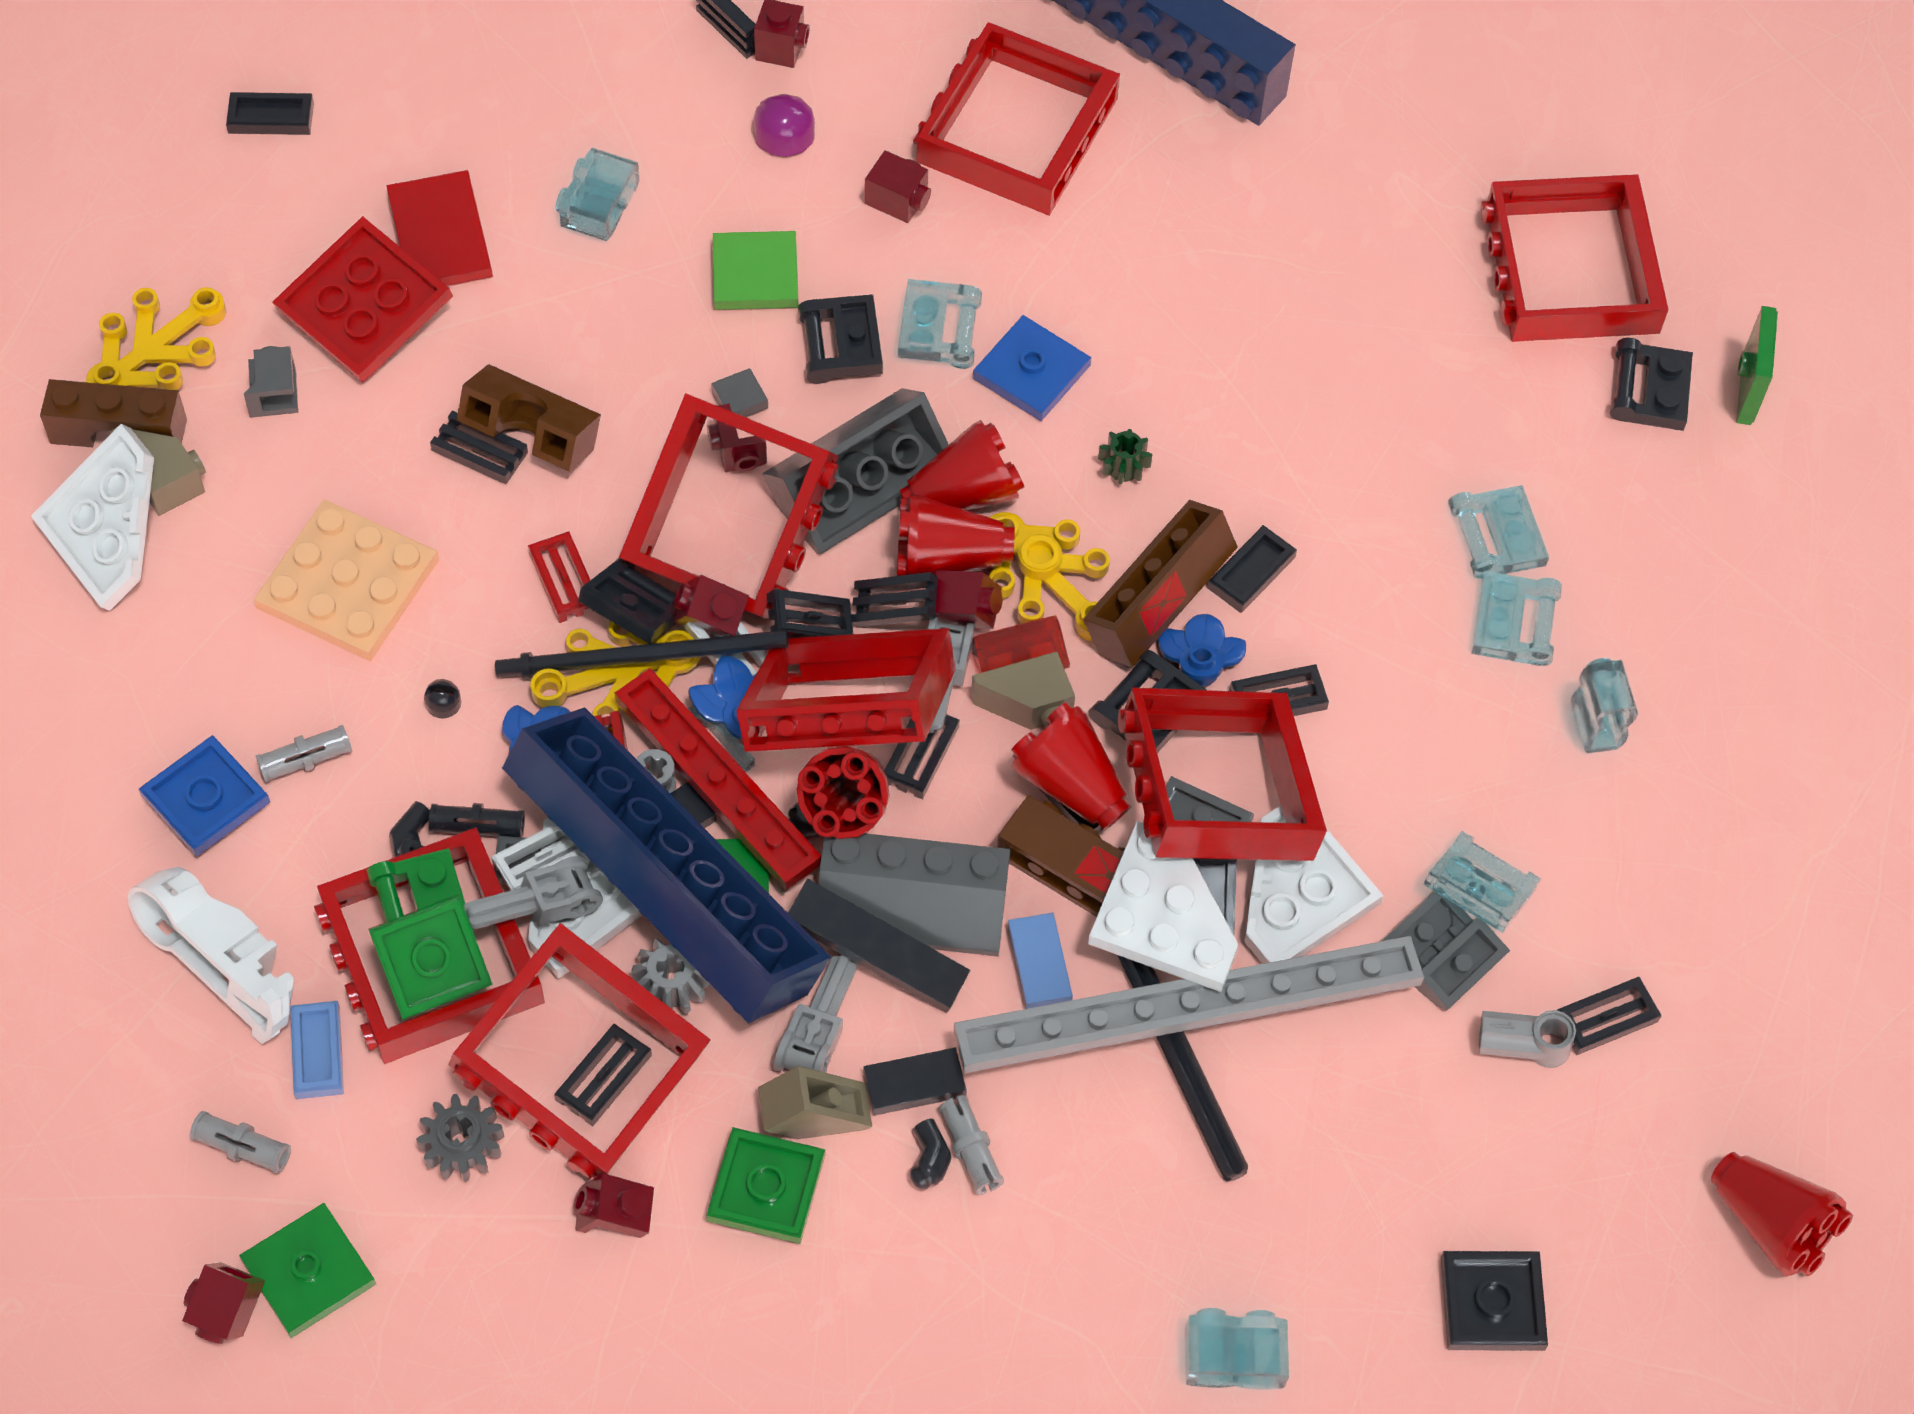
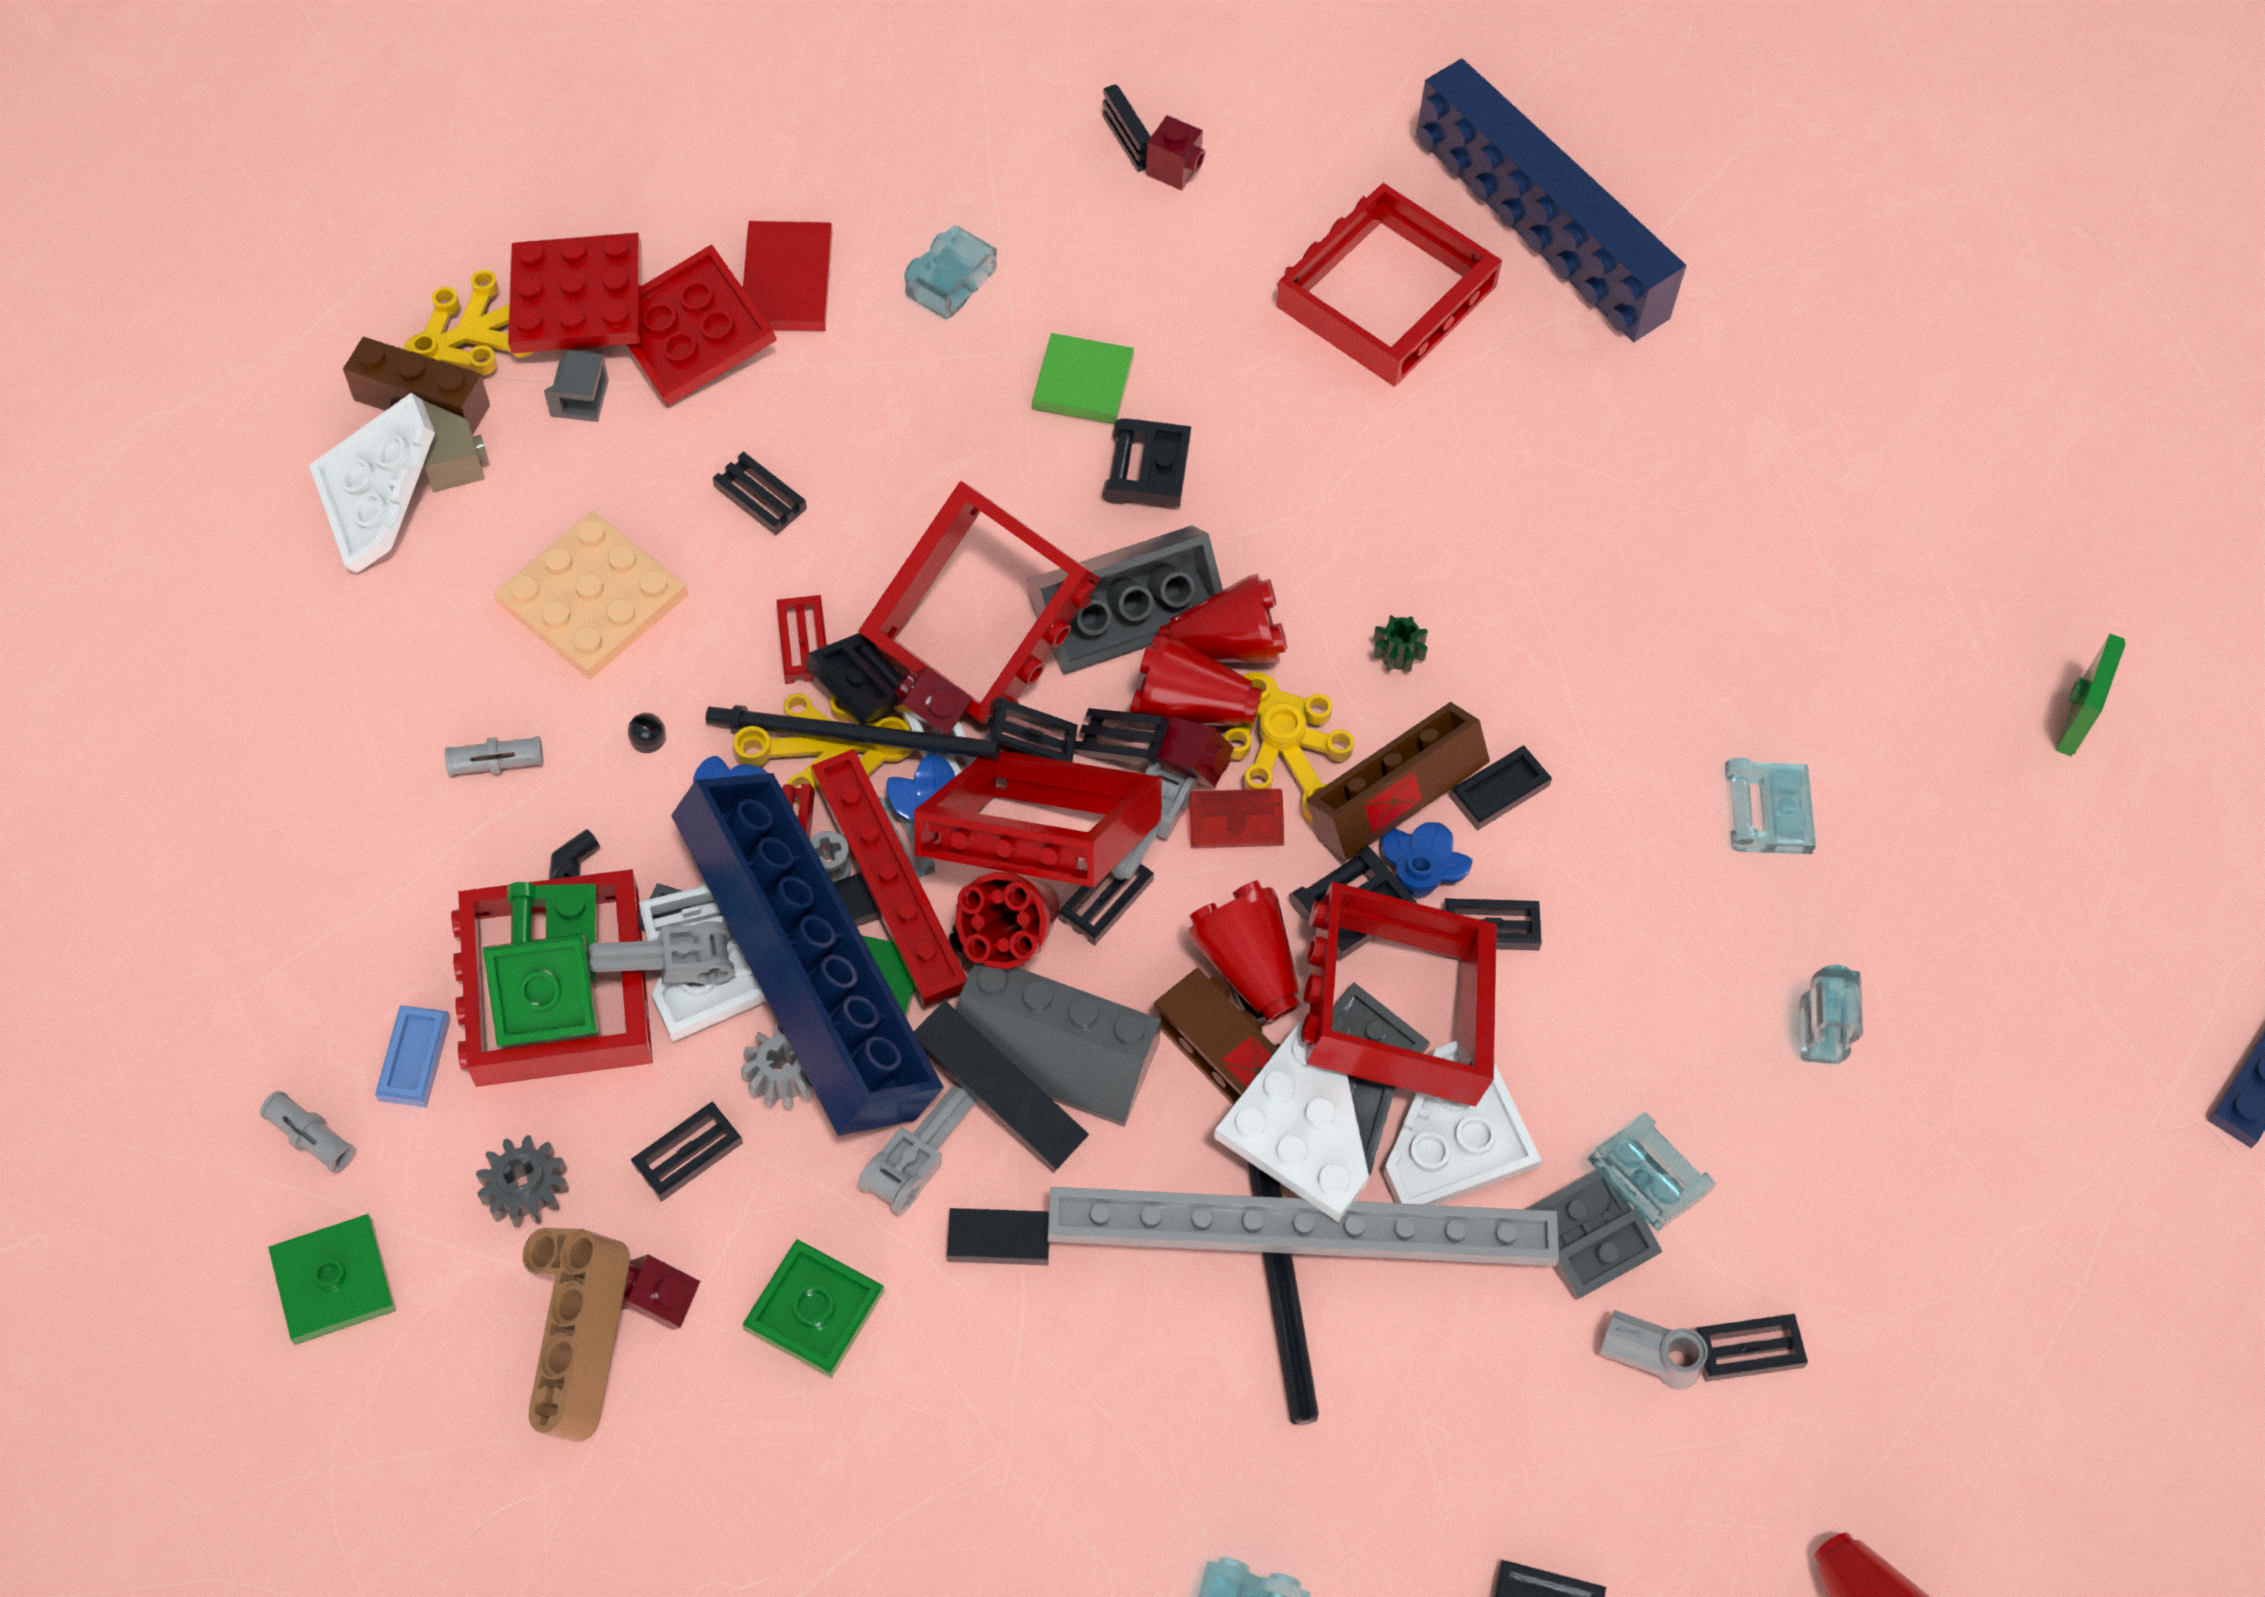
camera: 15 degrees right, 0 degrees up
(204, 795) = (385, 775): blue plate -> none
(215, 943) = (345, 928): white piece -> none
(221, 1302) = (233, 1290): dark red brick -> none
(242, 292) = (575, 293): none -> red plate
(270, 113) = (661, 130): black tile -> none
(445, 818) = (612, 854): black pin -> none
(503, 401) = (791, 451): reddish brown arch -> none
(554, 1203) = (578, 1329): none -> medium nougat beam
(622, 992) = (727, 1074): red window -> none
(736, 453) = (1010, 554): dark red bracket -> none
(741, 392) = (1031, 497): dark grey tile -> none
(784, 125) = (1153, 243): magenta hair -> none
(813, 1104) = (887, 1236): dark tan slope -> none
(897, 186) = (1247, 325): dark red brick -> none
(925, 322) = (1237, 463): clear light blue plate -> none
(935, 1156) = (994, 1323): black arm -> none
(971, 1144) = (1036, 1318): light grey pin -> none
(1024, 690) = (1227, 857): dark tan slope -> none
(1032, 367) = (1332, 534): blue plate -> none
(1039, 960) = (1164, 1142): medium blue tile -> none
(1501, 618) = (1750, 895): clear light blue plate -> none
(1576, 195) = (1939, 479): red window -> none
(1665, 385) = (1987, 697): black plate -> none

